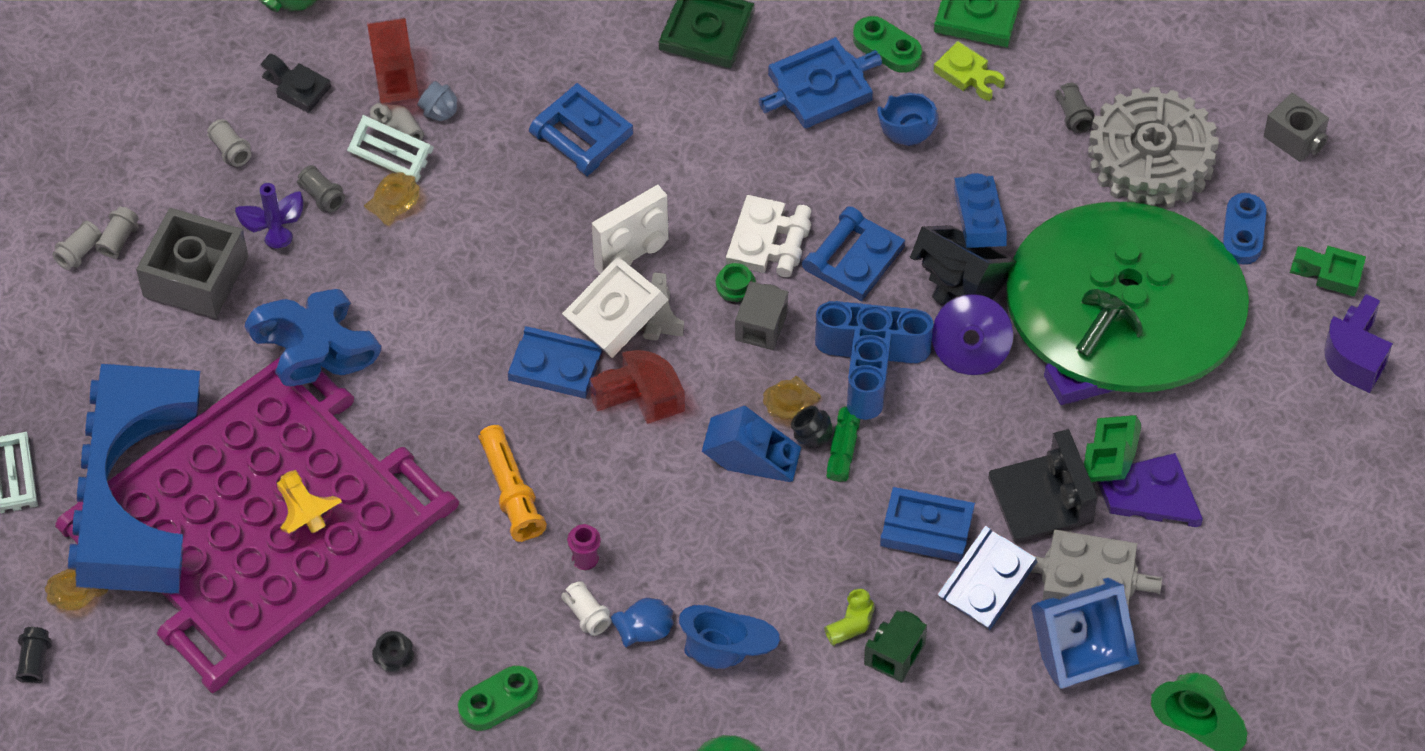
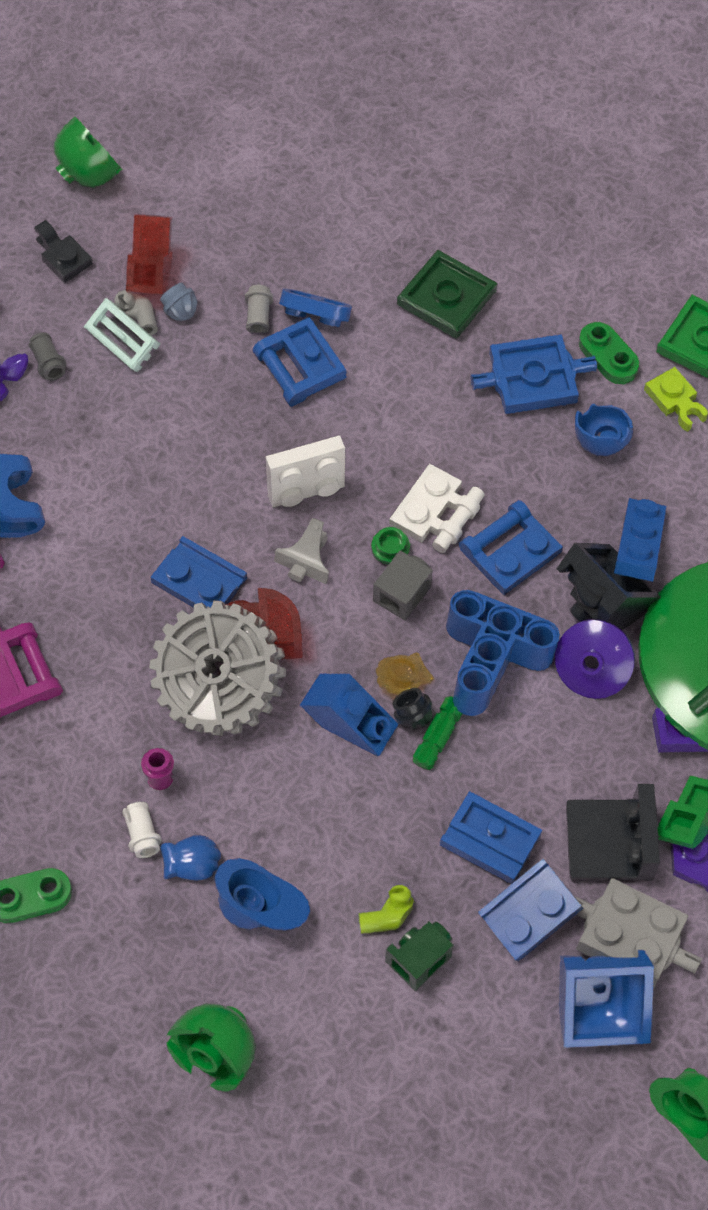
camera: 15 degrees right, 5 degrees up
(394, 197) = (109, 381): clear yellow animal -> none
(515, 497) = (115, 700): light orange pin -> none
(518, 81) = (258, 303): none -> light grey pin
(562, 71) = (300, 303): none -> blue plate
(615, 306) = (267, 541): white plate -> none
(643, 432) = (188, 661): none -> light grey piece

